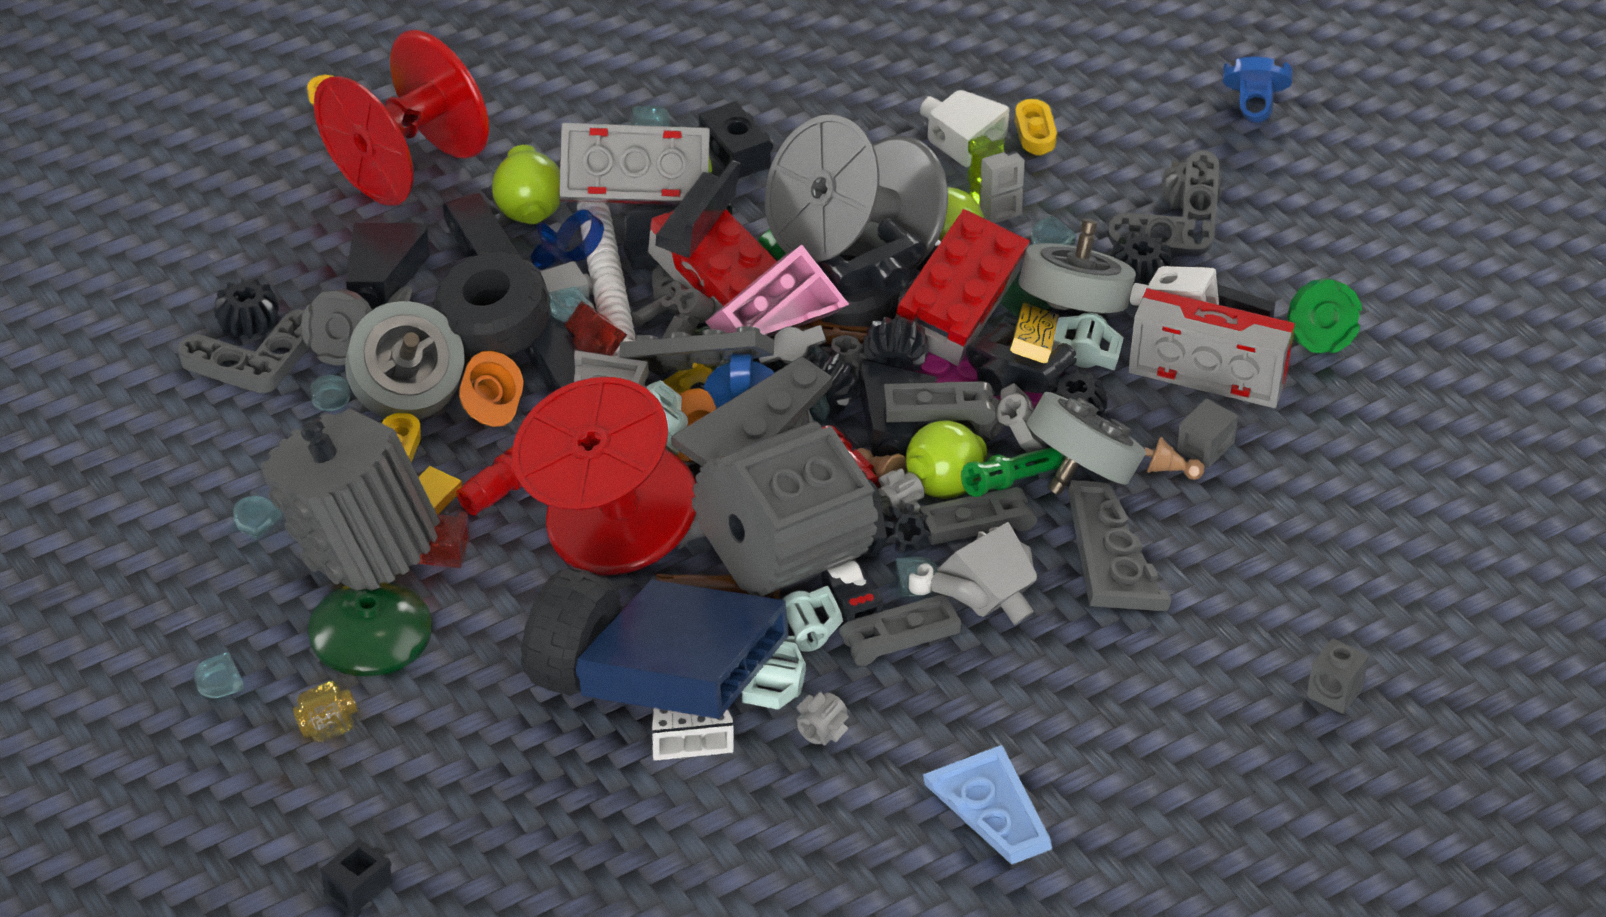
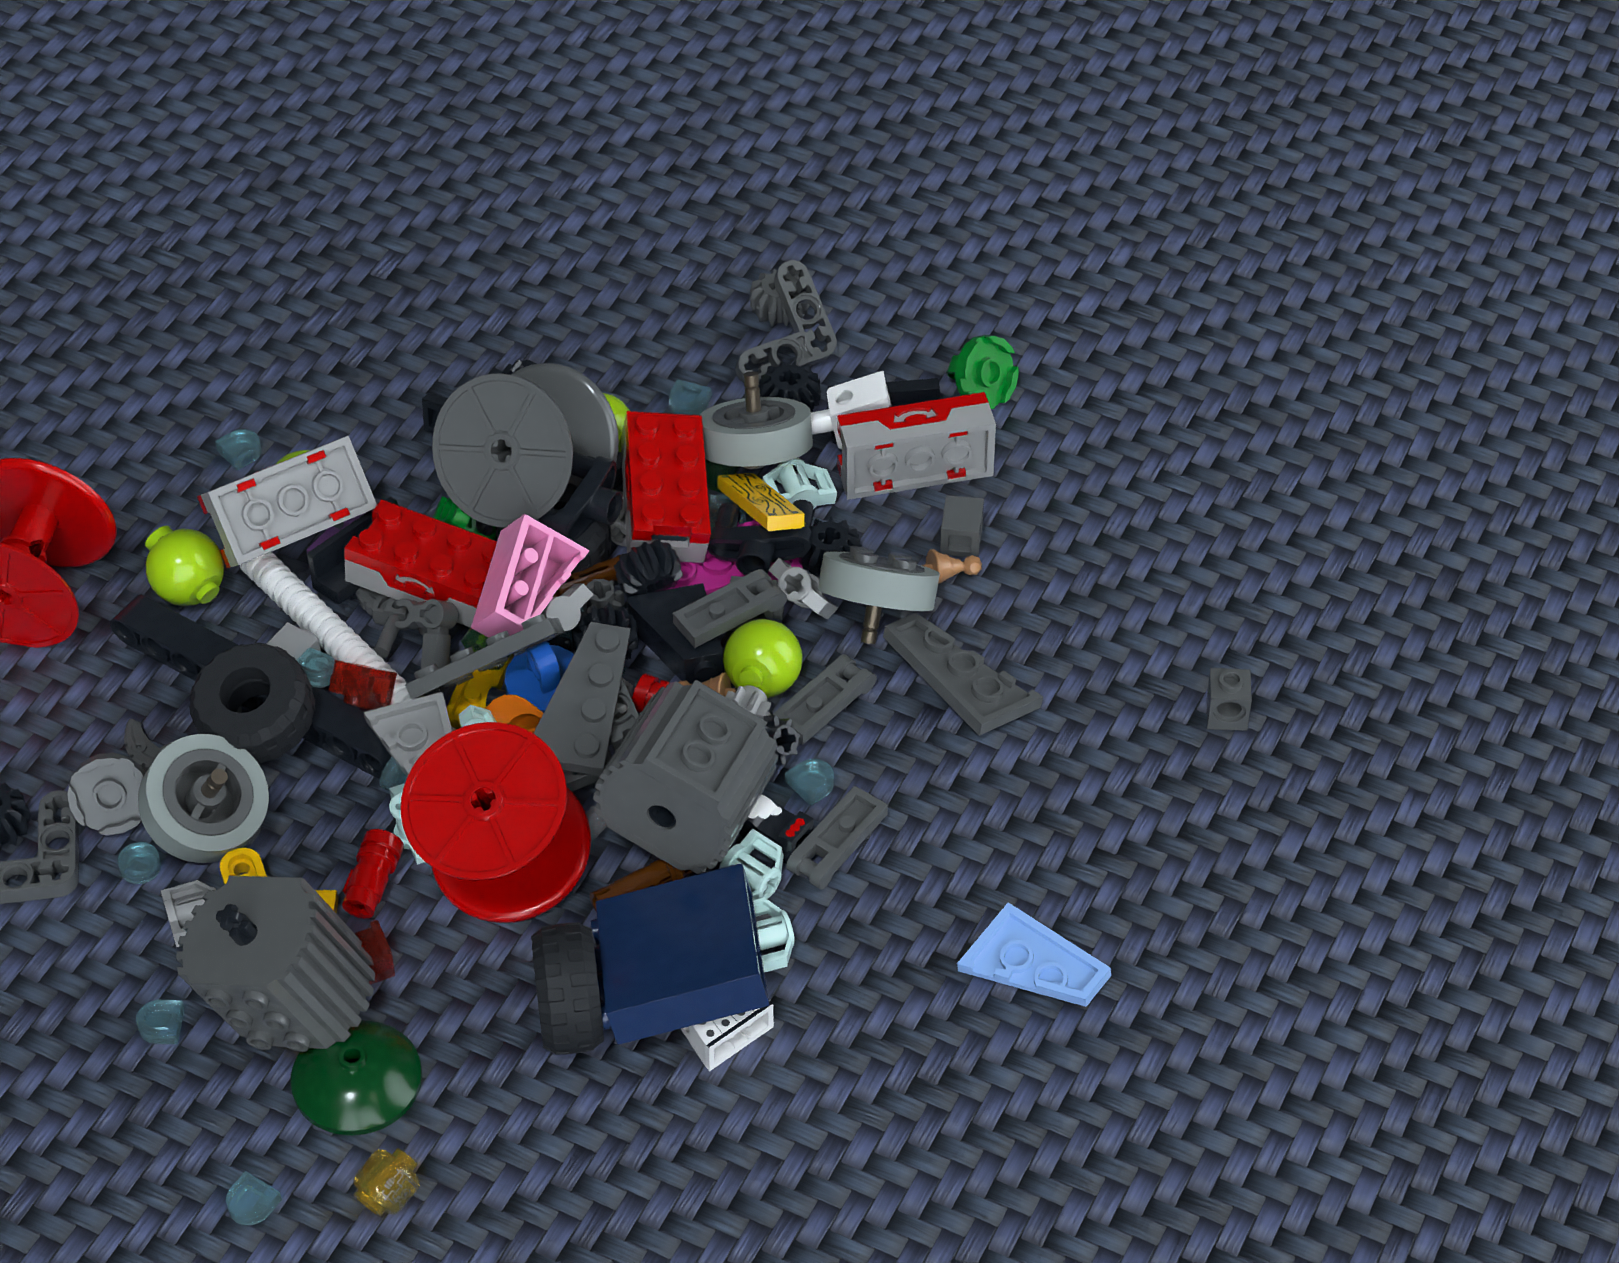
camera: 30 degrees left, 5 degrees up
(385, 258) = (92, 704): black slope -> none
(491, 388) = (303, 787): orange piece -> none
(555, 243) = (246, 625): clear blue piece -> none
(698, 211) = (389, 523): black panel -> none
(736, 138) = (331, 419): black brick -> none
(822, 718) = (837, 956): light grey gear -> none
(962, 119) = (537, 325): white torso -> none
(984, 575) = (880, 749): light grey torso -> none
(995, 179) = (611, 363): light grey hips -> none
(1035, 126) = (601, 299): yellow plate -> none
(1044, 460) = (824, 646): green pin -> none
(1257, 79) = (769, 171): blue tile -> none

